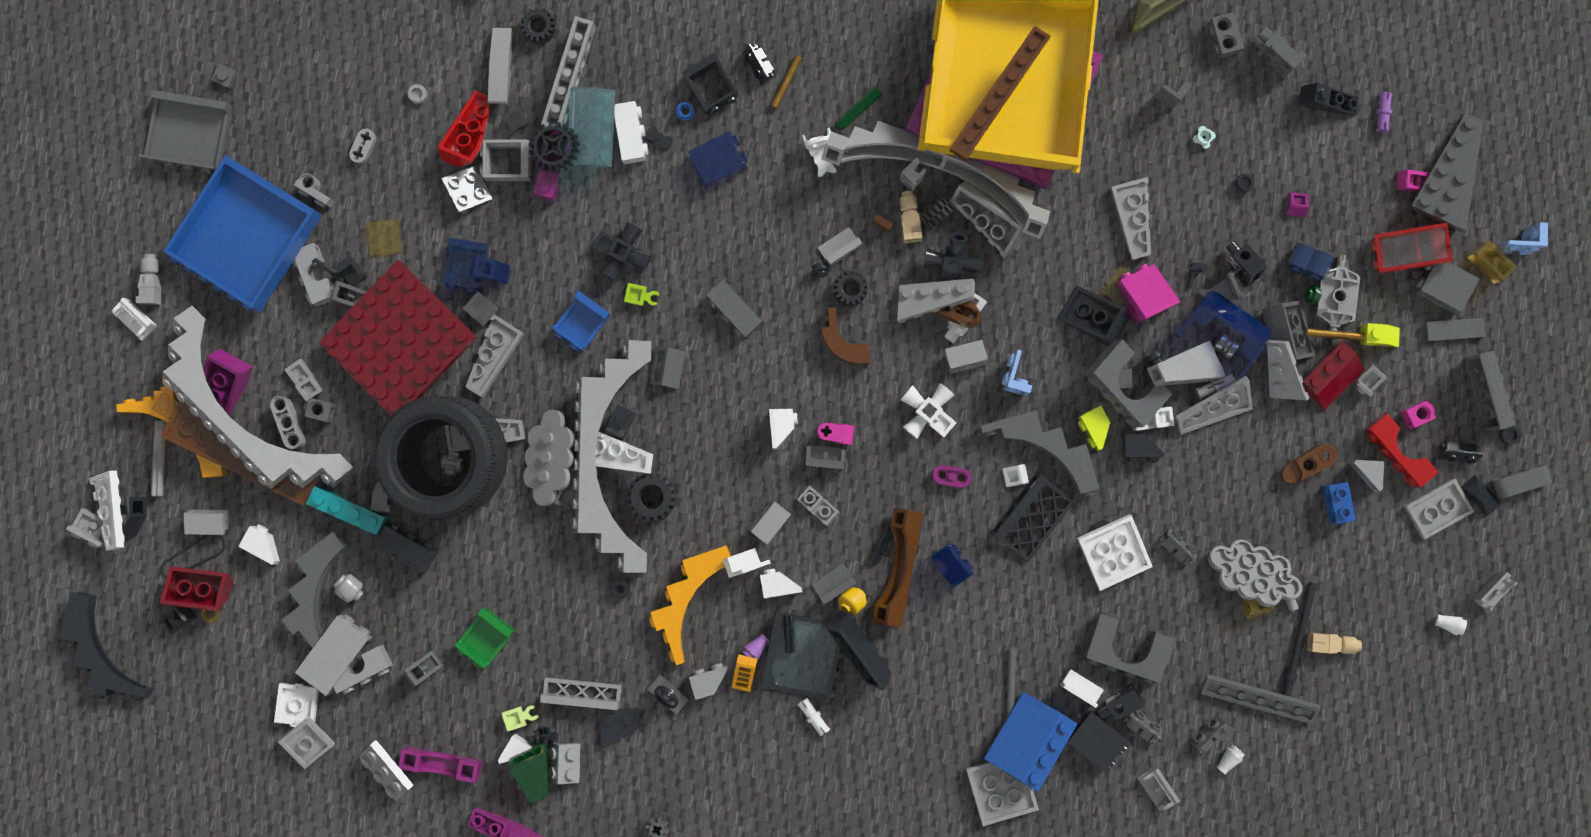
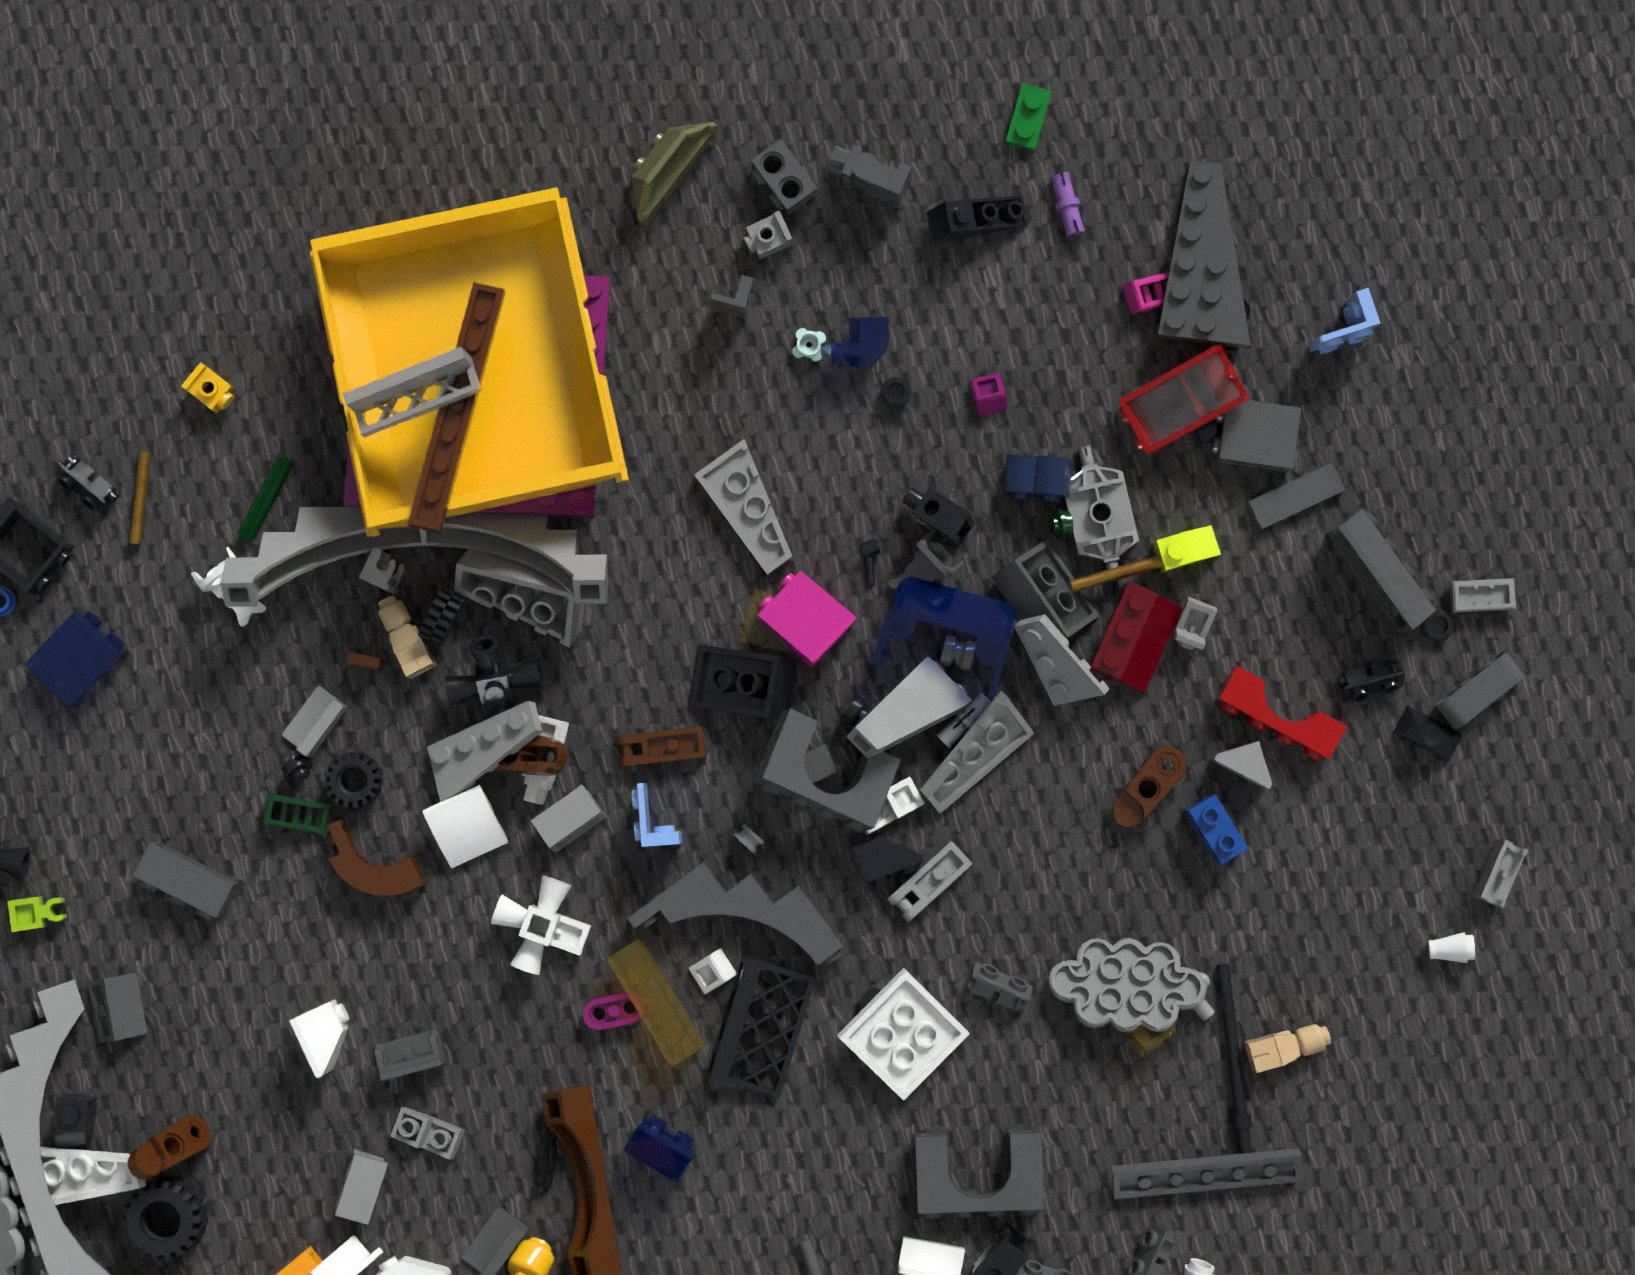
camera: 25 degrees left, 0 degrees up
(671, 457) = (169, 1148): none -> reddish brown piece
(799, 281) = (270, 806): none -> dark green slope
(839, 433) = (418, 1011): dark pink piece -> none
(850, 41) = (197, 382): none -> yellow brick
(905, 338) = (465, 826): none -> white slope
(977, 480) = (656, 1002): none -> clear yellow panel
(978, 68) = (412, 380): none -> light grey fence
(1035, 335) = (662, 746): none -> reddish brown plate
(1065, 407) = (749, 838): none -> light grey bush
(1096, 426) = (804, 849): neon yellow slope -> none
(1161, 470) = (930, 880): none -> light grey plate
(1199, 71) = (780, 237): none -> light grey brick
(1238, 148) = (867, 342): none -> clear blue brick
(1379, 53) = (1028, 117): none -> green plate
(1410, 416) = (1274, 654): dark pink brick -> none
(1438, 509) = (1371, 779): light grey tile -> none
(1492, 262) = (1312, 373): clear yellow brick -> none
(1543, 427) = (1482, 595): none -> light grey plate

